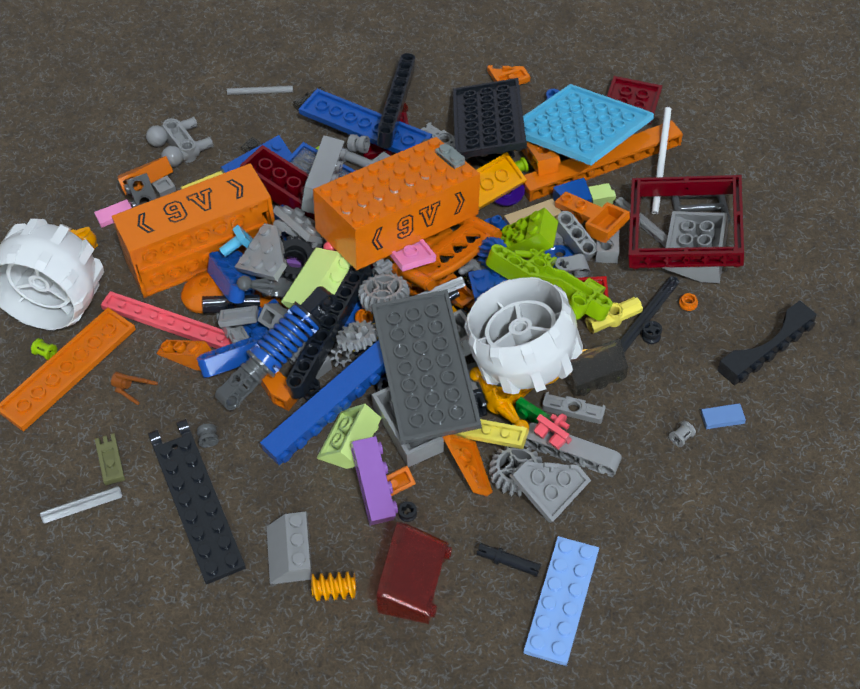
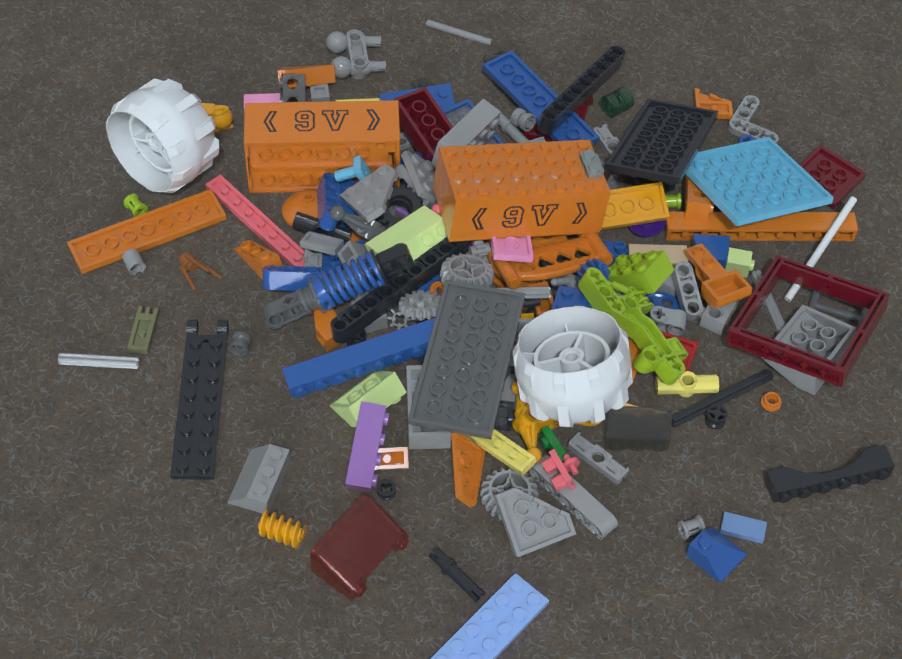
camera: 20 degrees right, 0 degrees up
(68, 400) = (133, 261): none -> light grey beam
(429, 100) = (617, 102): none -> clear green wheel
(541, 80) = (744, 122): none -> light grey beam
(713, 448) = (715, 553): none -> blue slope

